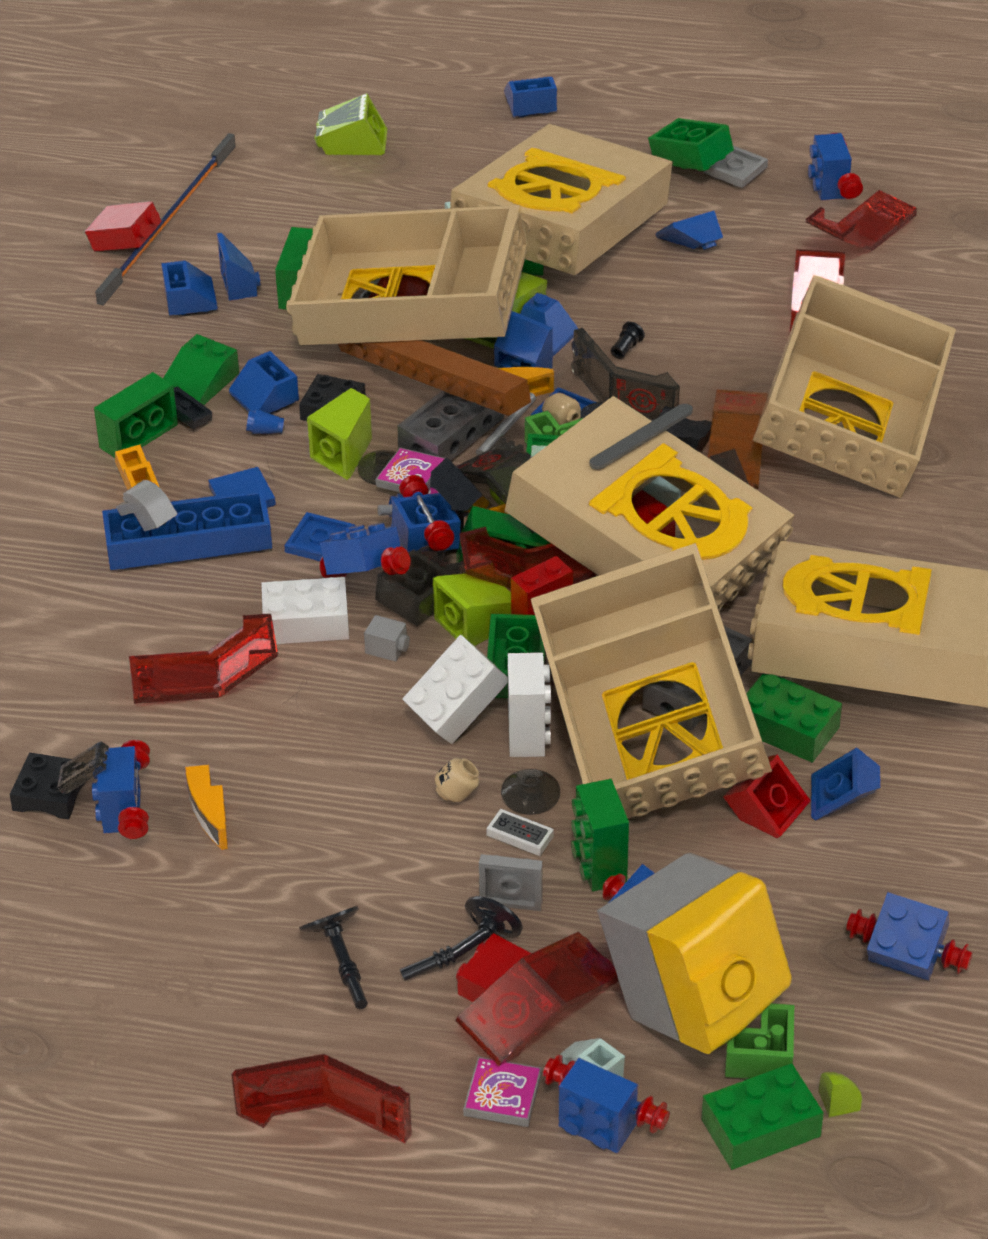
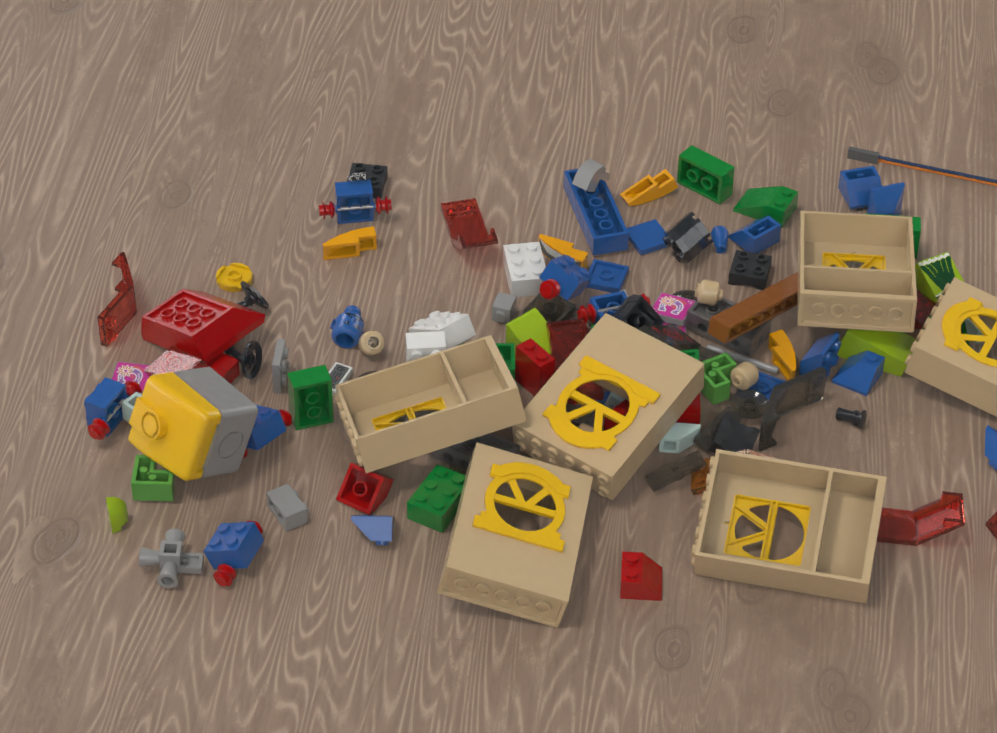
camera: 85 degrees right, 0 degrees up
(123, 226) = (926, 149): red brick -> none
(190, 410) = (730, 198): black hinge -> none
(259, 959) = (231, 276): none -> yellow tile
(272, 441) = (687, 238): none -> black brick
(283, 566) = (554, 248): none -> light orange slope
(341, 432) = (702, 263): lime slope -> none
(401, 984) = (199, 323): none -> red piece
(415, 807) = (347, 327): none -> blue piece
(418, 414) = (708, 292): none -> tan head
(640, 436) = (663, 380): dark grey piece -> none
(762, 1116) = (98, 478): green brick -> none
(810, 884) = (287, 507): none -> light grey brick
(924, 540) = (640, 577): none -> red slope
(932, 1020) = (171, 559): none -> light grey brick

